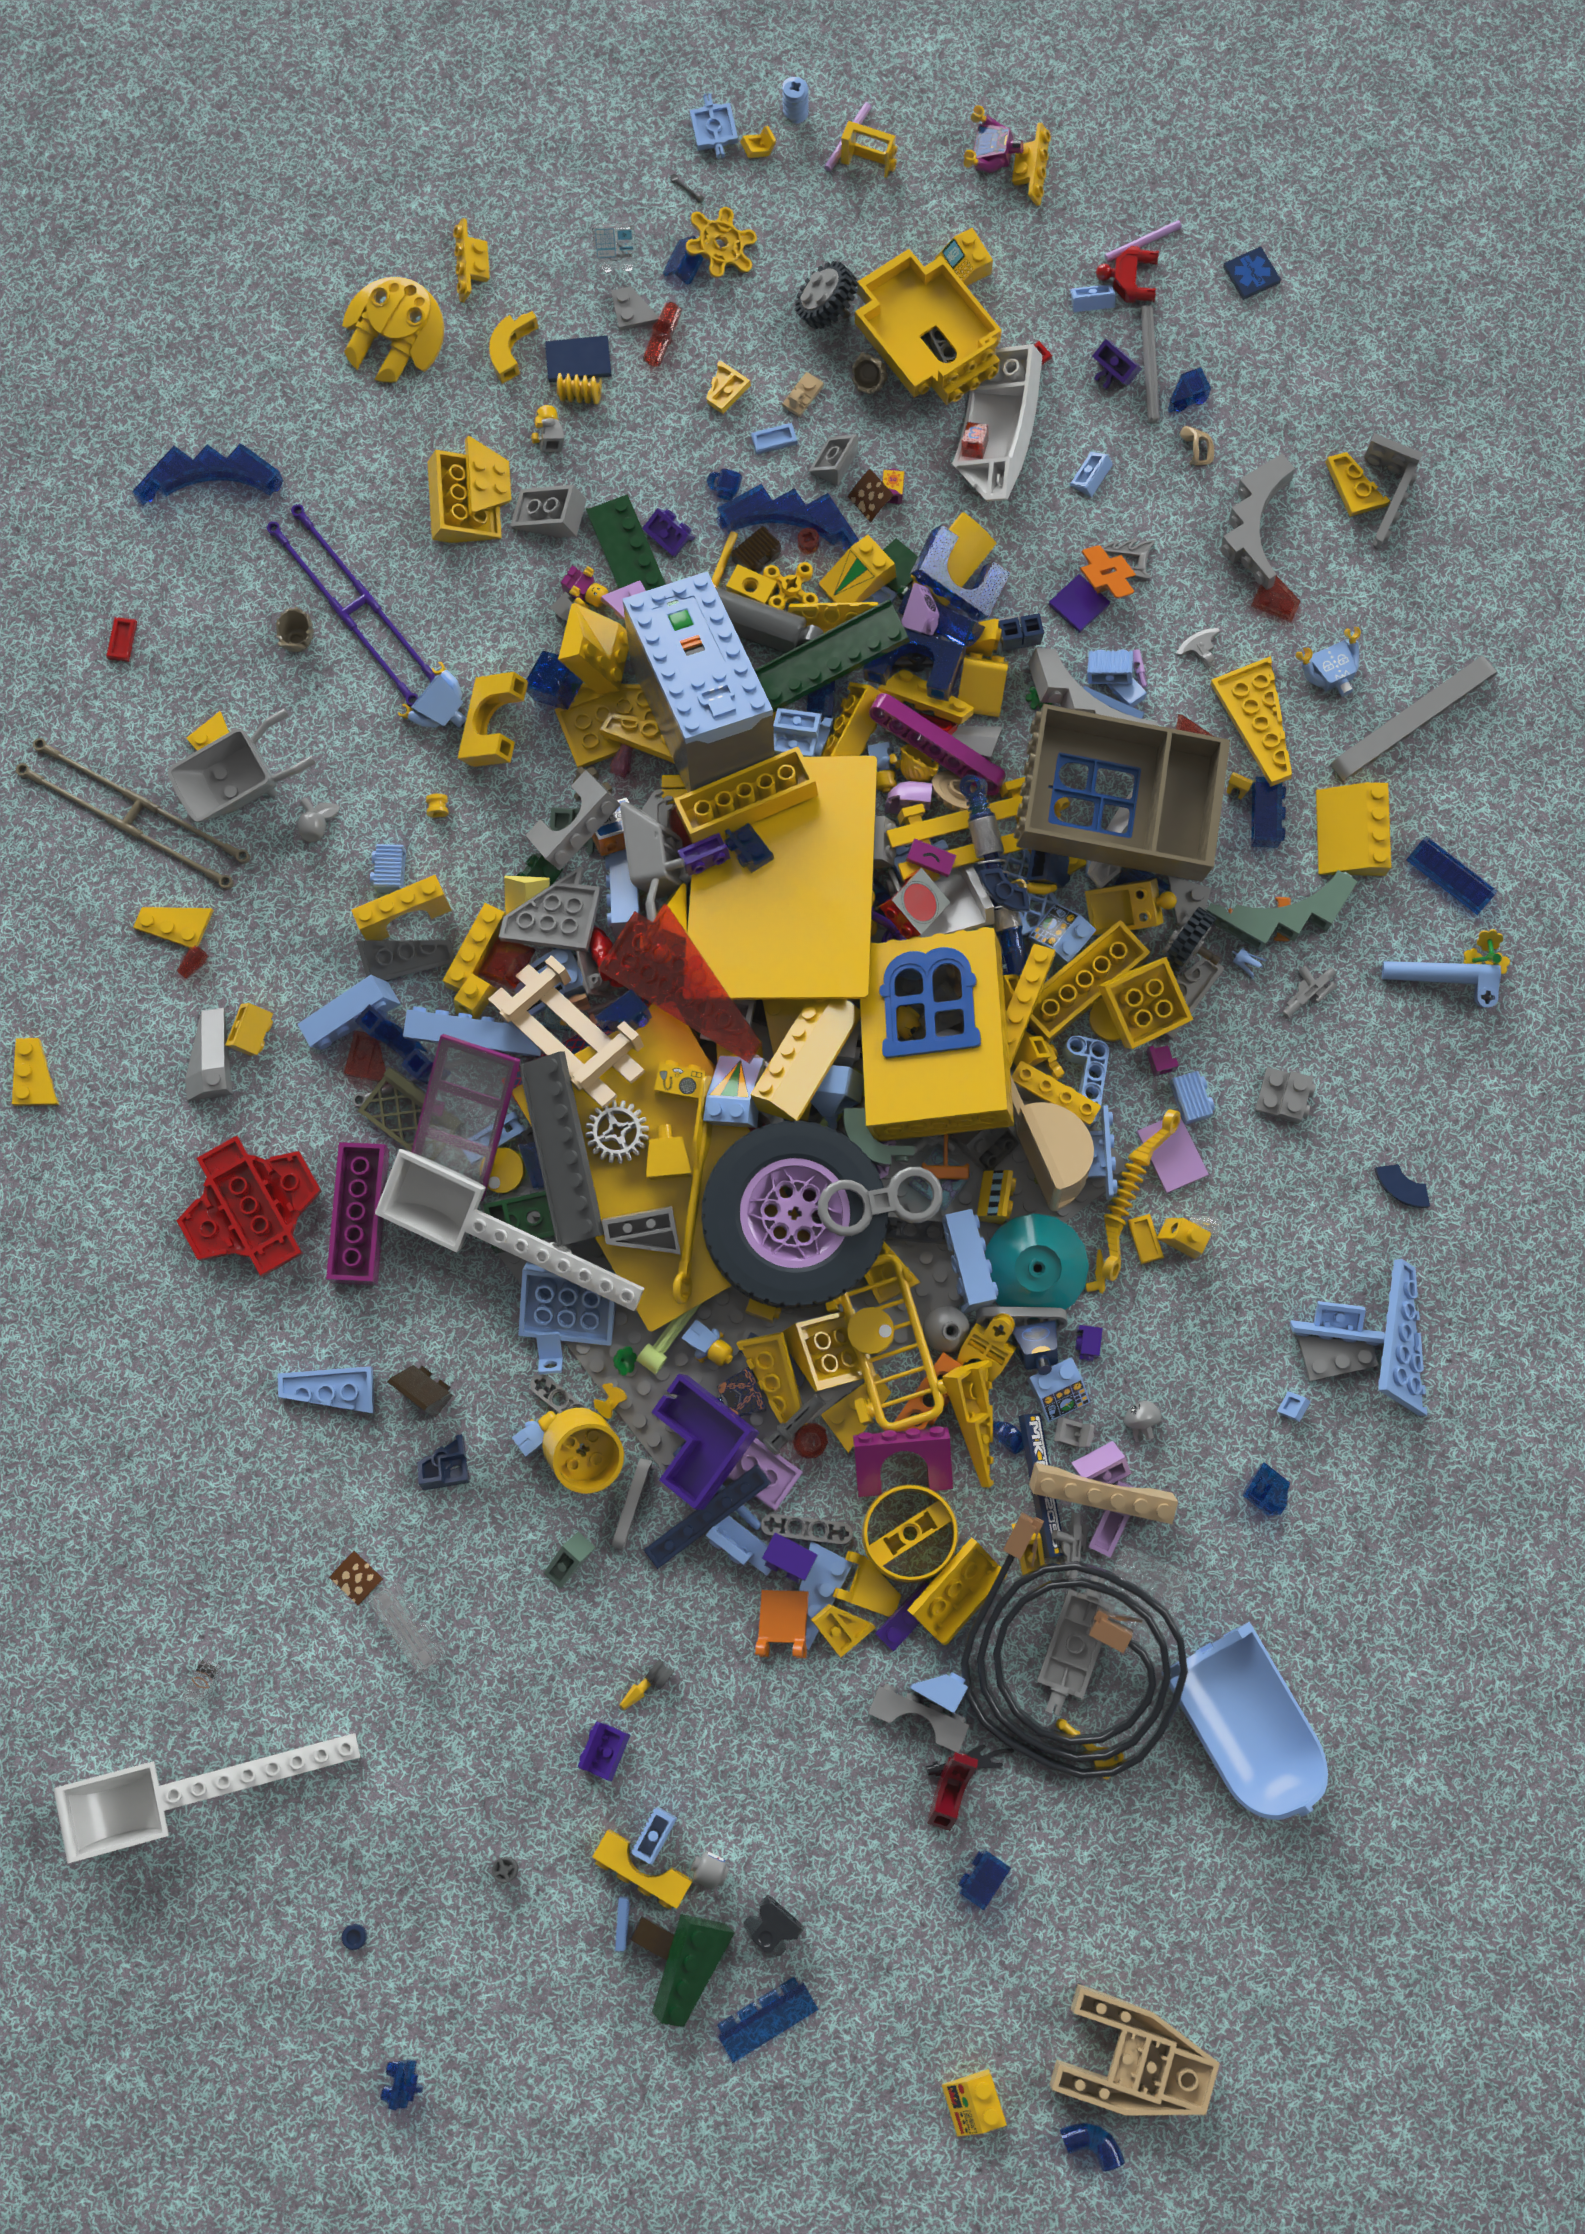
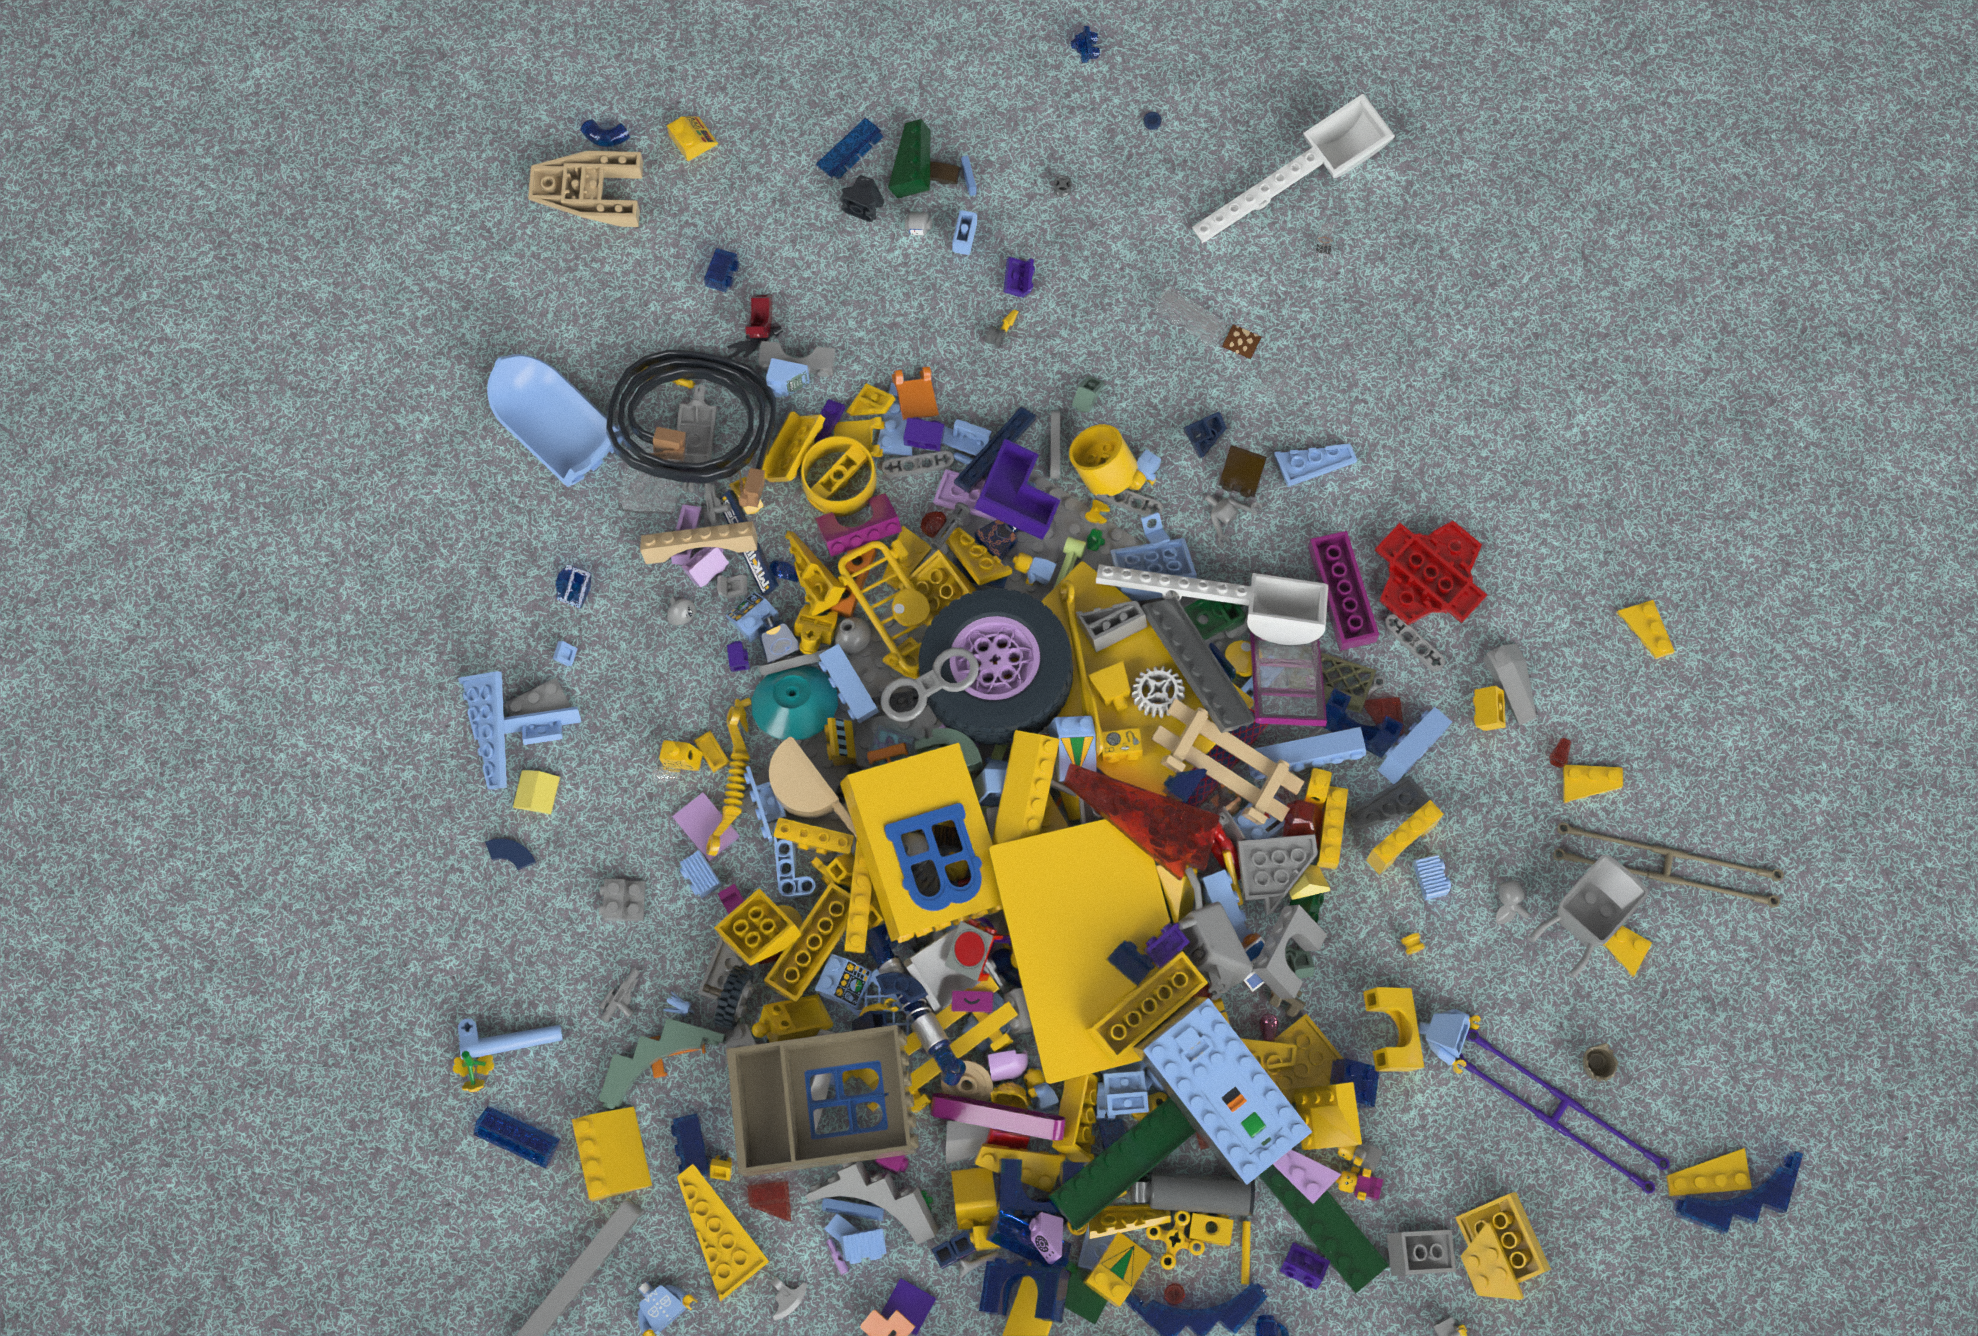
camera: 160 degrees right, 5 degrees down
(121, 639) = (1749, 1018): red tile -> none
(220, 502) = (1713, 1176): none -> yellow wing
(304, 1132) = (1416, 641): none -> light grey beam
(457, 1354) = (1226, 511): none -> light grey piece
(603, 930) = (1230, 868): none -> yellow bar
(614, 1854) = (944, 206): yellow arch -> none
(757, 550) = (1218, 1267): dark brown brick -> none
(1359, 1249) = (536, 791): none -> light yellow slope

